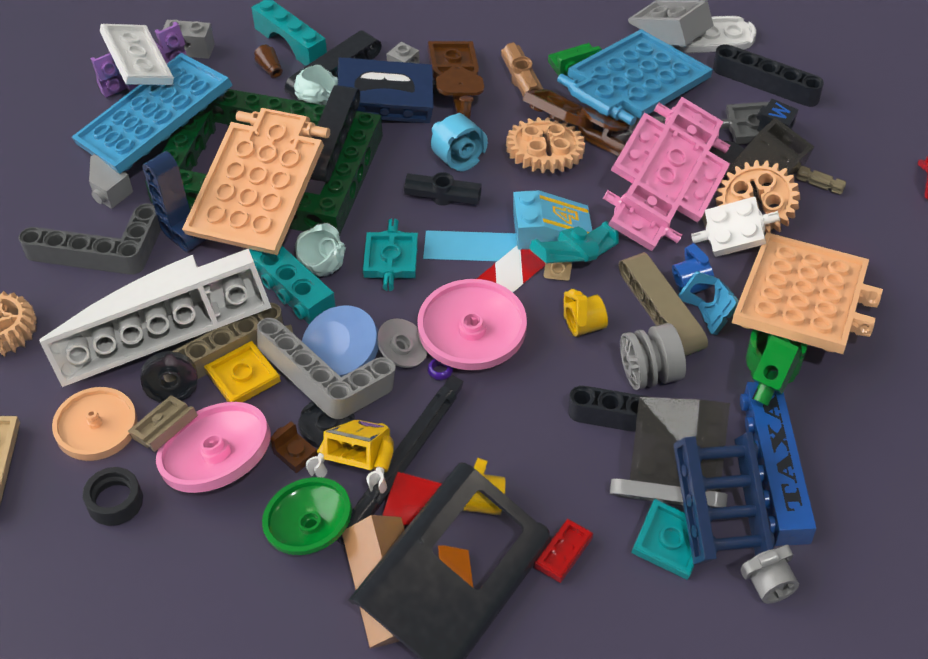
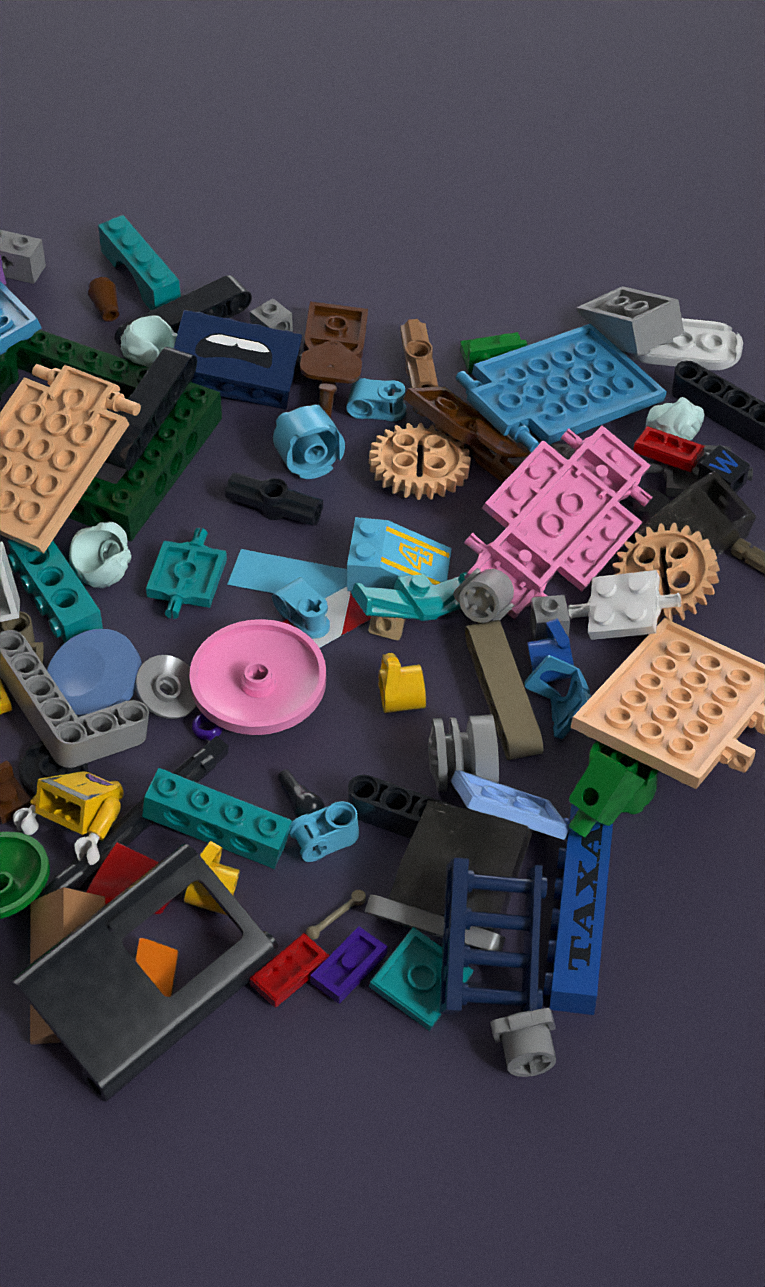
camera: 10 degrees right, 0 degrees up
(473, 439) = (216, 818): none -> teal brick
(490, 265) = (303, 608): none -> medium azure piece
(497, 104) = (374, 399): none -> medium azure piece
(537, 417) = (302, 799): none -> black piece
(555, 436) = (324, 832): none -> medium azure piece
(598, 484) = (357, 898): none -> dark tan hinge
(609, 538) = (348, 964): none -> dark purple plate
(630, 235) = (485, 595): none -> light grey piece
(677, 241) = (546, 609): none -> light grey brick
(699, 388) = (509, 804): none -> light blue tile
(727, 89) = (676, 418): none -> light aqua hair
(732, 108) = (668, 449): none -> red plate

